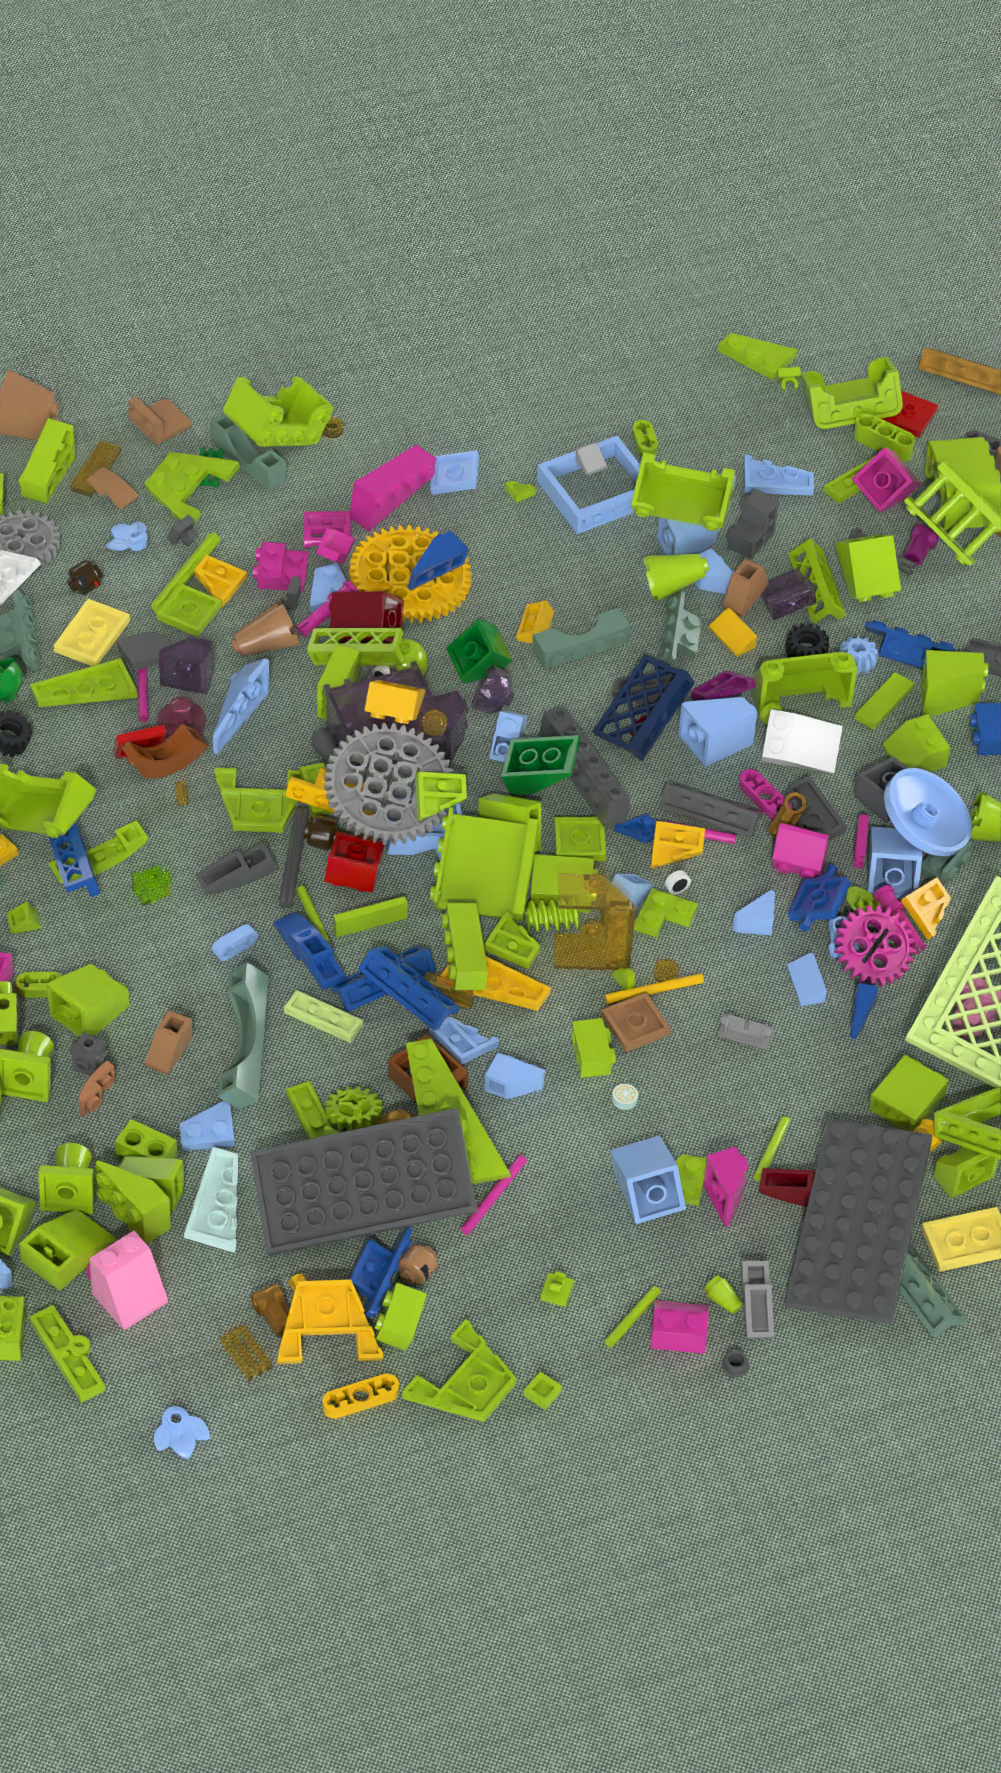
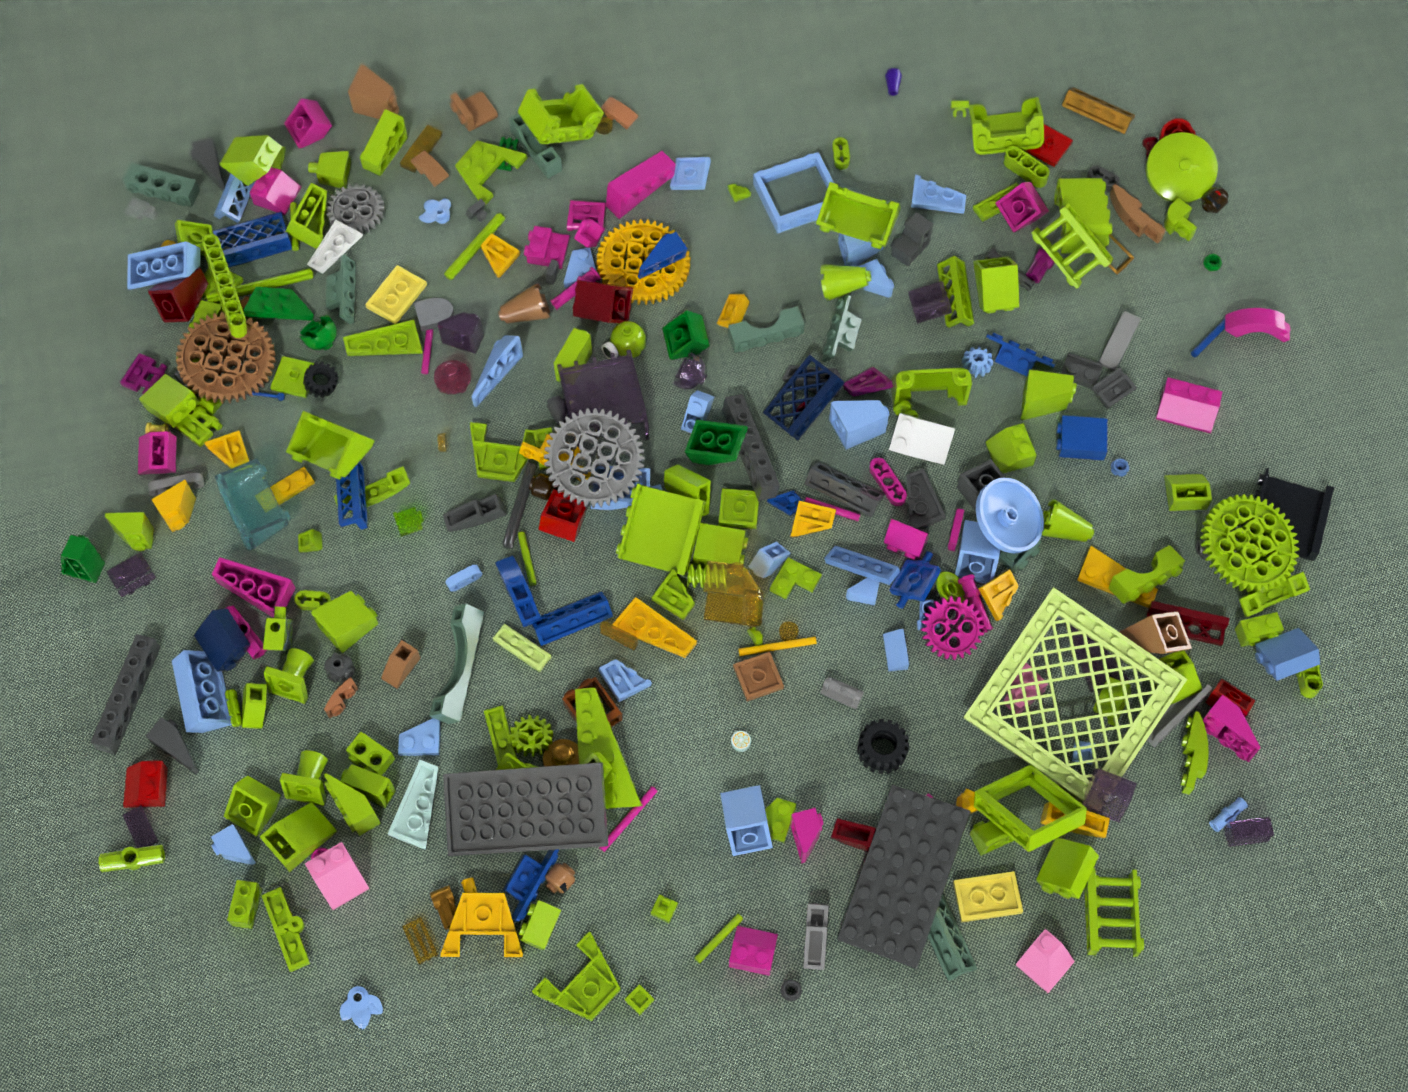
camera: 10 degrees right, 15 degrees up
(84, 577) = (397, 245): dark brown head -> none
(146, 738) = (415, 396): red plate -> none
(169, 756) = (436, 409): dark orange arch -> none
(189, 610) = (472, 280): lime plate -> none
(344, 1409) = (493, 983): yellow beam -> none
(351, 410) = (621, 113): none -> nougat slope
(370, 916) = (569, 564): lime tile -> none
(371, 654) = (597, 334): lime fence -> none
(394, 701) = (606, 387): yellow slope -> none
(408, 987) = (584, 635): blue fence -> none
(434, 722) = (636, 407): clear yellow tile -> none
(438, 792) = (629, 471): lime wing -> none
(455, 711) = (654, 398): clear purple slope -> none
(465, 946) = (635, 602): lime brick -> none
(512, 1077) = (655, 717): light blue slope -> none
(590, 459) = (794, 173): light grey slope -> none
(592, 1047) = (721, 697): lime brick -> none
(677, 882) = (808, 554): white tile -> none
(698, 351) = (893, 80): none -> dark purple cone
(723, 1294) = (790, 927): lime cone -> none
(733, 633) = (884, 333): yellow slope -> none
(745, 587) = (897, 296): medium nougat slope -> none
(749, 884) = (862, 565): none -> medium blue plate
(757, 354) = (939, 84): lime wing -> none
(772, 1146) = (847, 797): lime bar -> none
(787, 815) = (900, 506): pearl gold piece -> none
(804, 1099) = (887, 731): none -> black tyre
(806, 635) = (943, 340): black tyre -> none
(864, 1002) = (936, 677): blue slope -> none
(884, 701) = (992, 403): lime tile -> none
(908, 1094) = (960, 761): lime brick -> none

